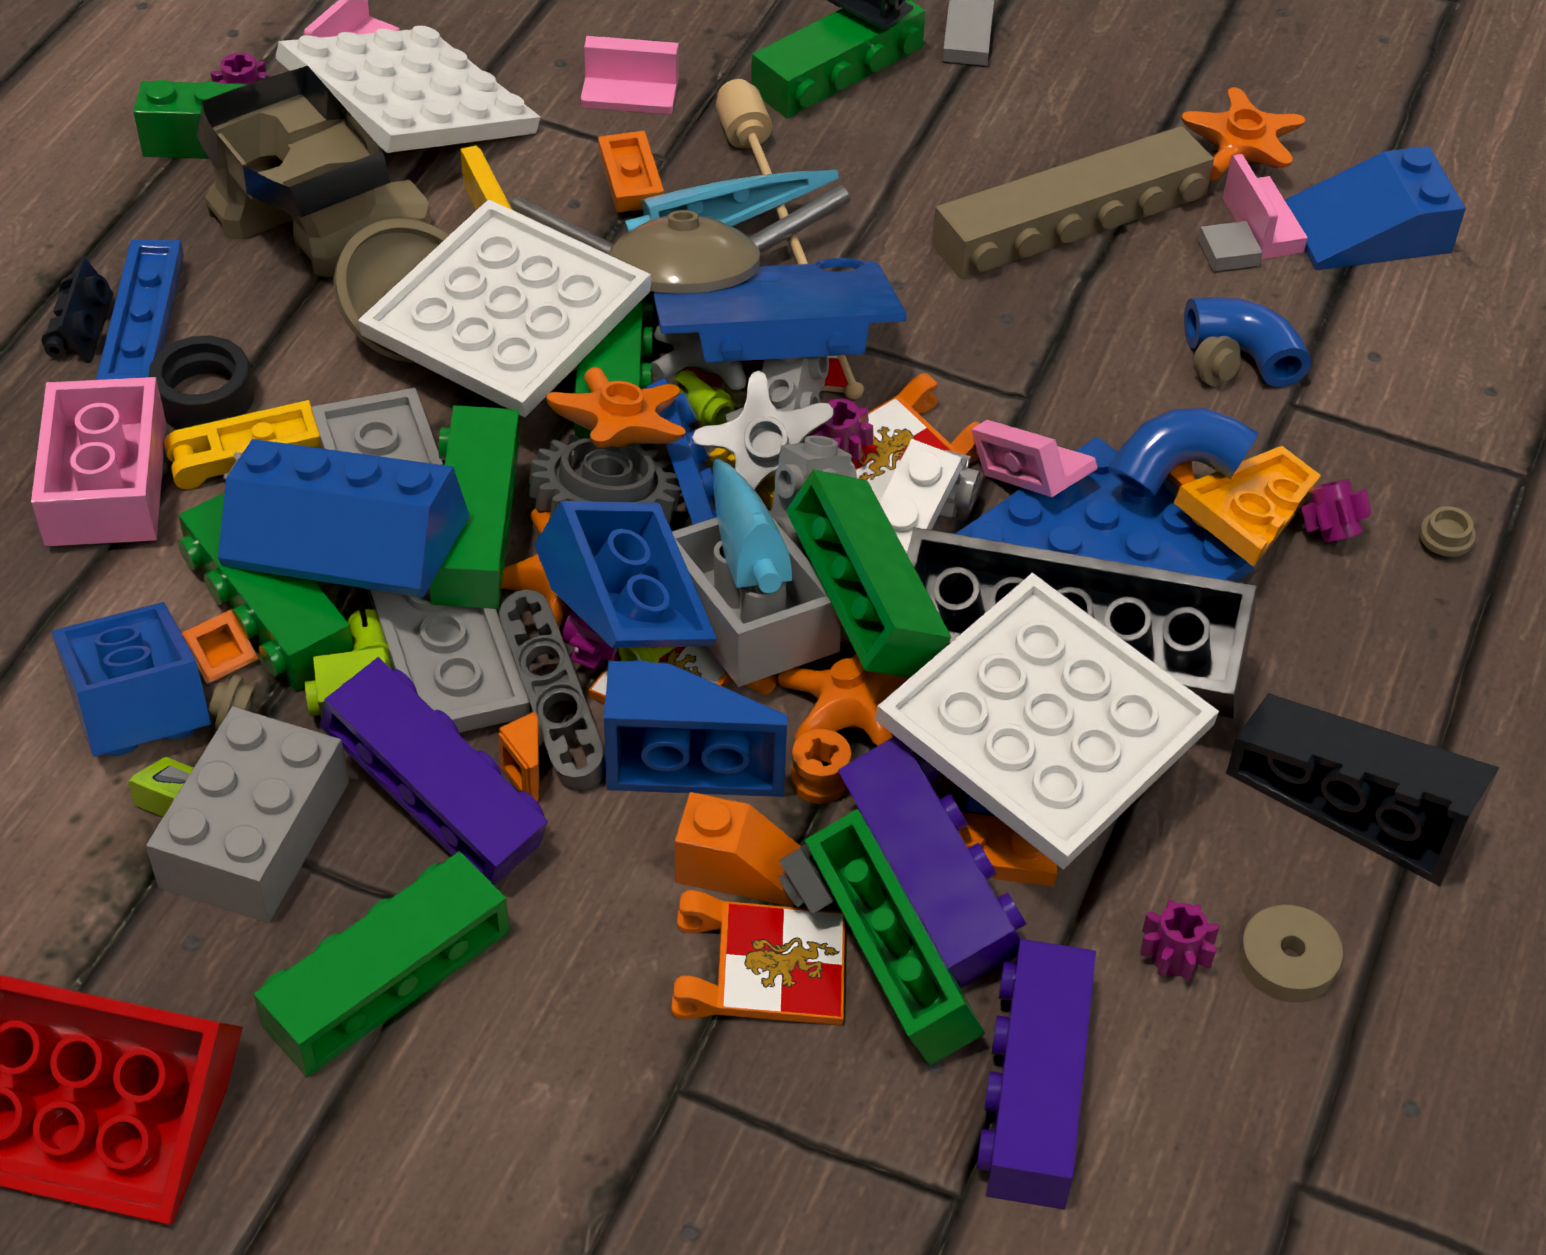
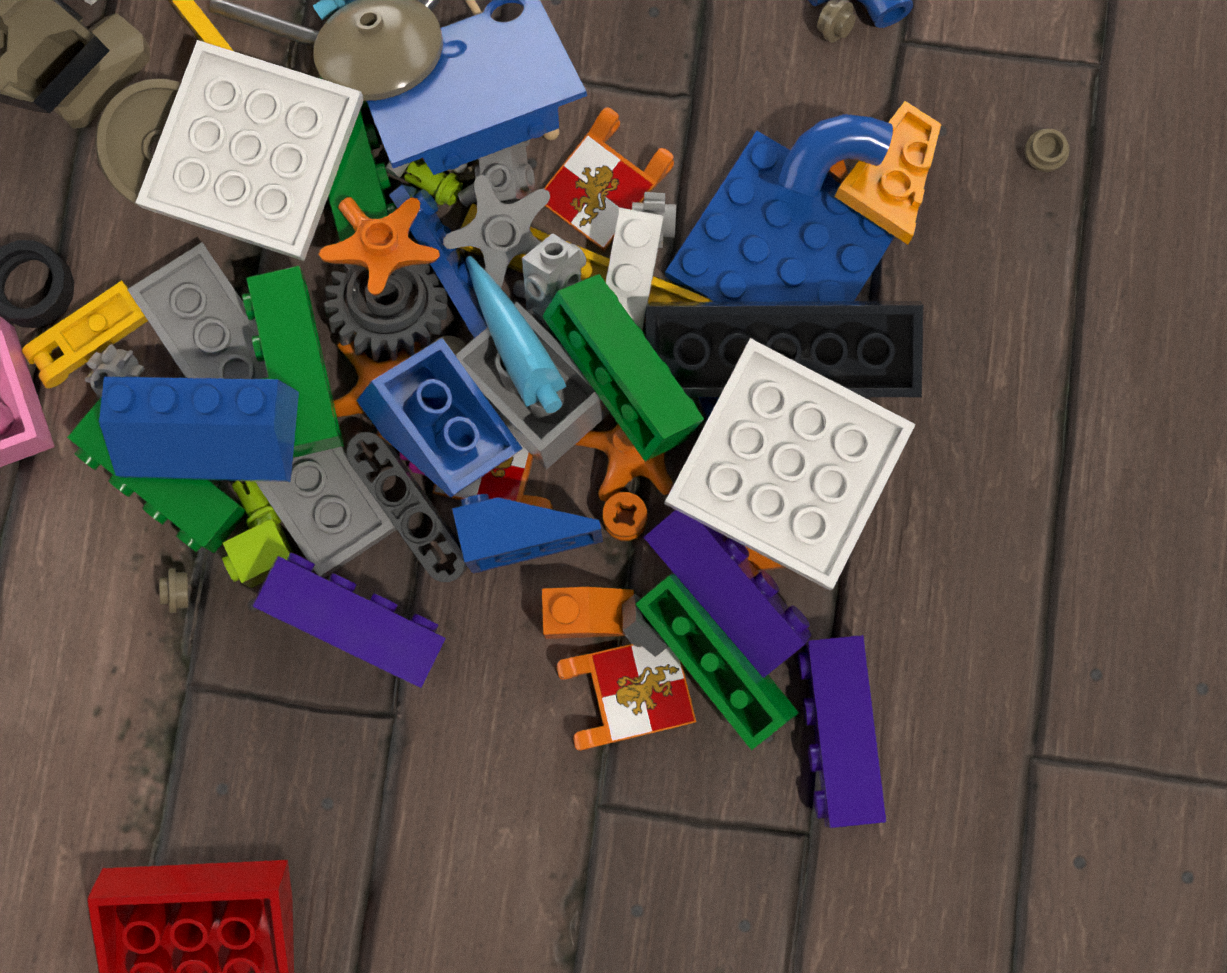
camera: 10 degrees left, 30 degrees up
(131, 679) = (87, 587): blue slope -> none
(158, 785) = (158, 670): lime slope -> none
(219, 647) = (141, 535): orange slope -> none
(248, 814) = (225, 684): light grey brick -> none
(381, 963) = (364, 778): green brick -> none
(521, 753) = (404, 573): orange slope -> none
(848, 427) = (566, 196): magenta gear -> none
(1029, 459) = (715, 178): bright pink panel -> none
(1179, 939) = (917, 583): magenta gear -> none
(1288, 976) = (1014, 571): dark tan piece -> none
(1336, 510) = (959, 159): magenta gear -> none
(1364, 783) = (1024, 423): black wedge -> none

